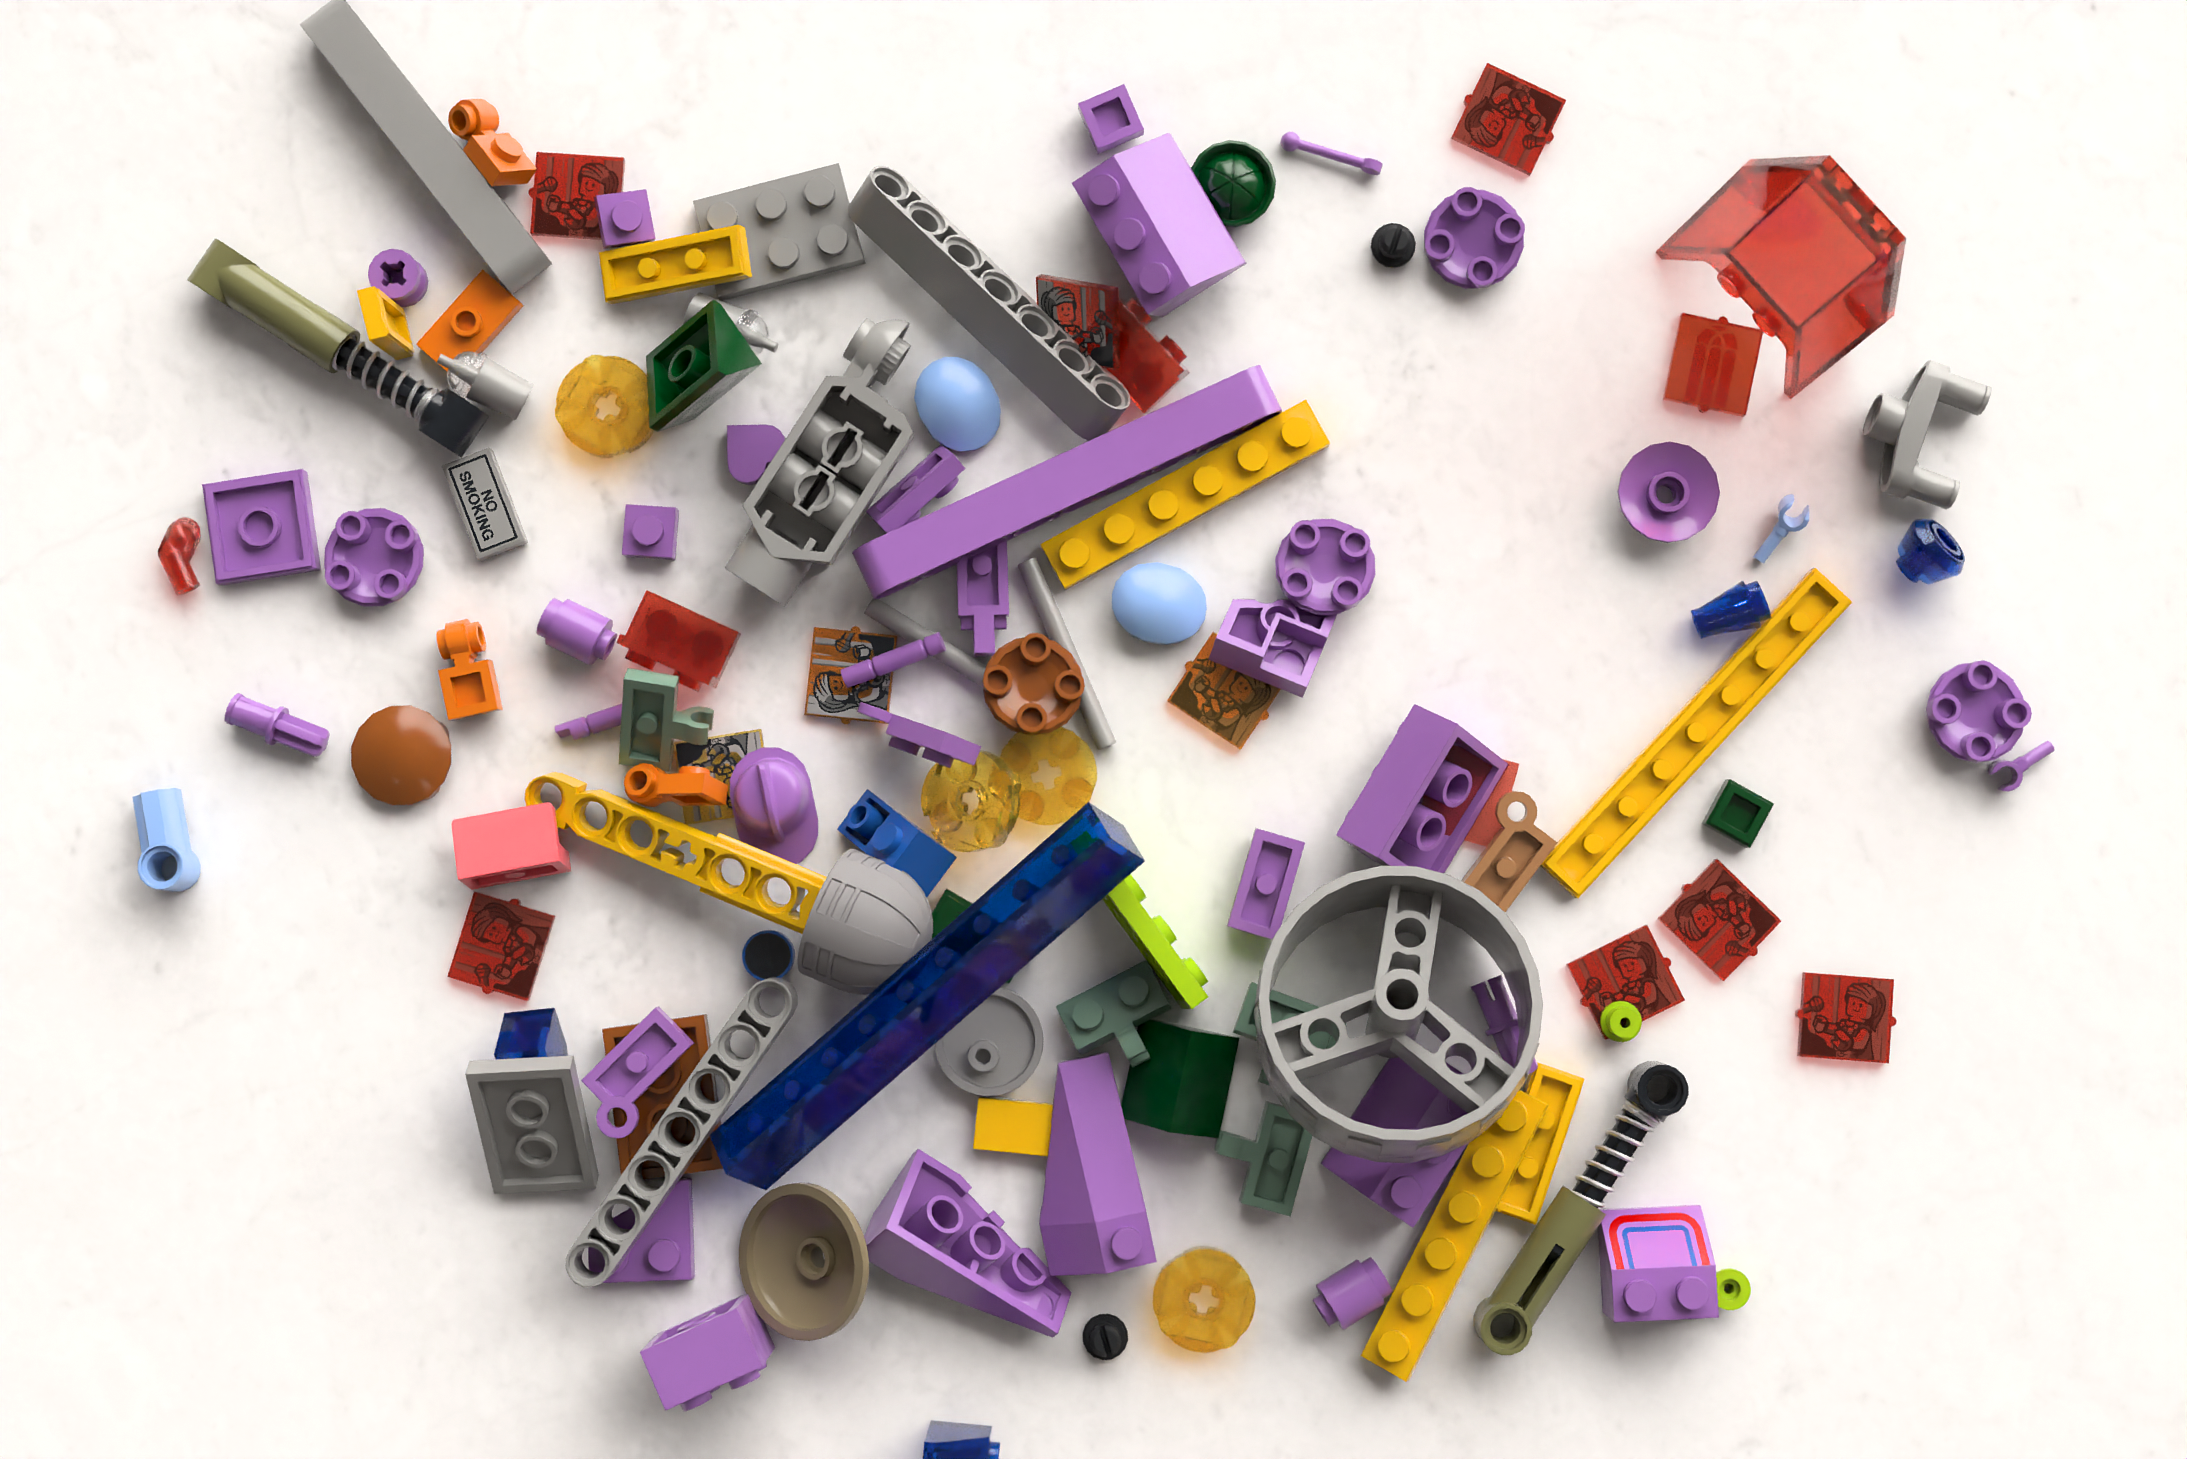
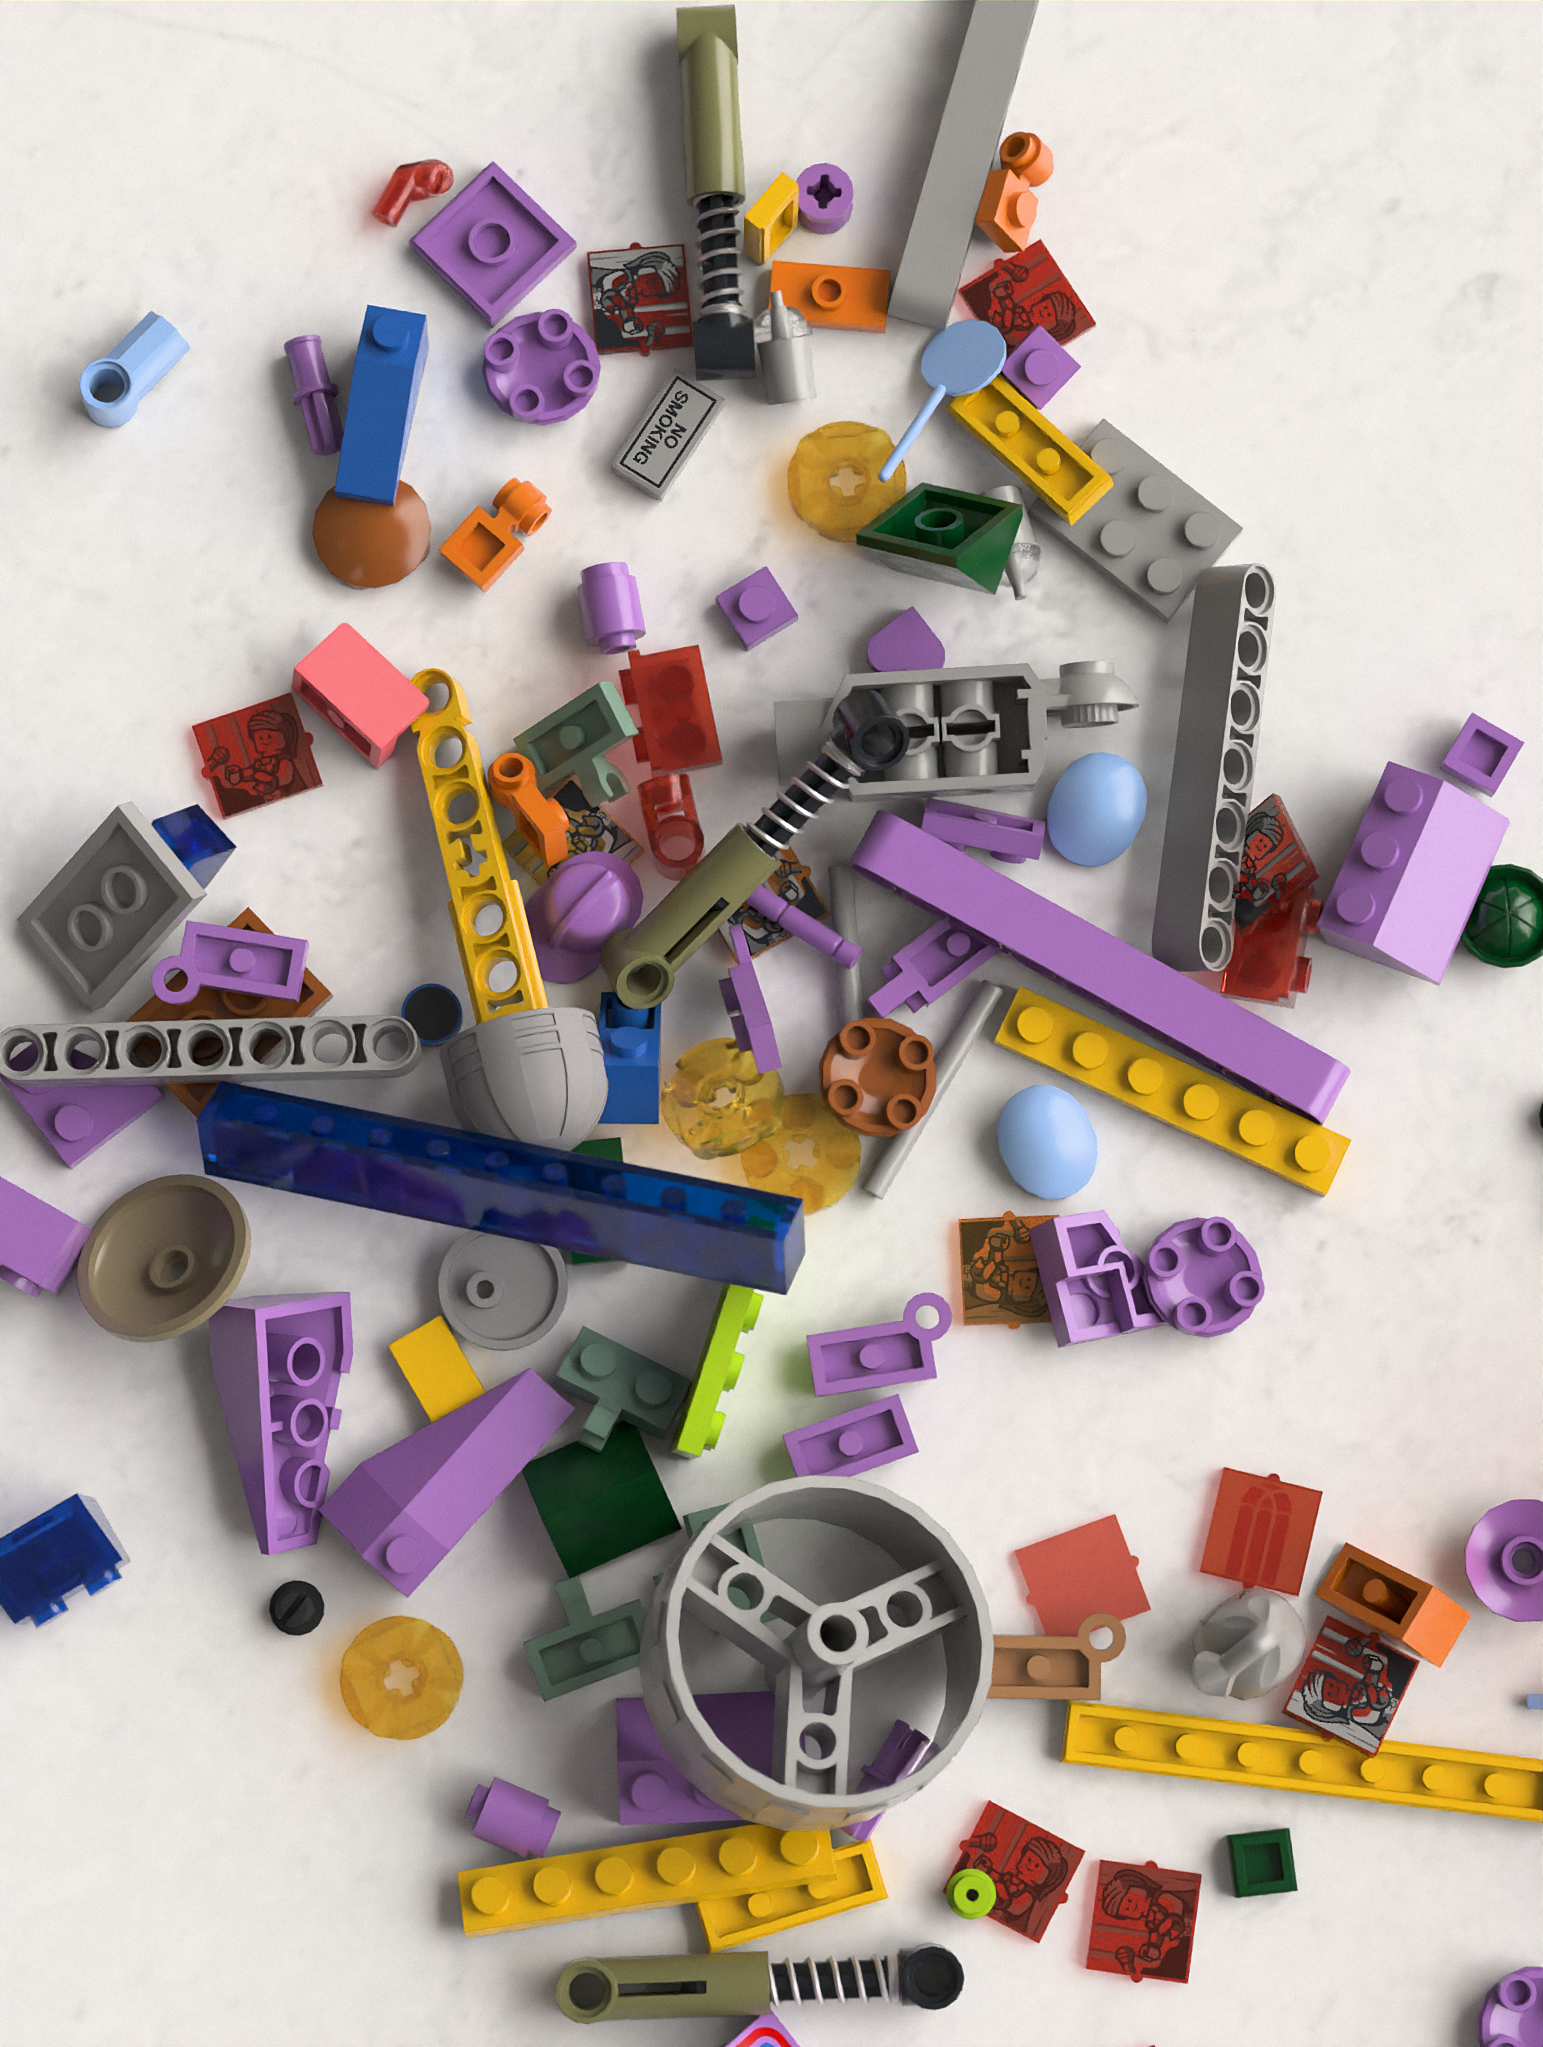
camera: 50 degrees right, 5 degrees down
(317, 685) = (381, 404): none -> blue slope
(375, 454) = (640, 299): none -> piece
(580, 274) = (953, 365): none -> light blue piece
(592, 723) = (533, 687): medium lavender wheel -> none
(735, 687) = (663, 797): none -> clear red piece
(817, 662) = (748, 855): none -> piece
(1219, 820) = (878, 1353): none -> medium lavender hinge
(1389, 816) = (1008, 1512): medium lavender slope -> none
(1520, 653) = (1260, 1531): none -> clear red piece
(1591, 718) = (1247, 1645): none -> light grey piece
(1633, 601) = (1393, 1604): none -> orange slope
(1666, 669) = (1350, 1686): none -> piece
(1732, 611) = (1456, 1710): clear blue cone -> none

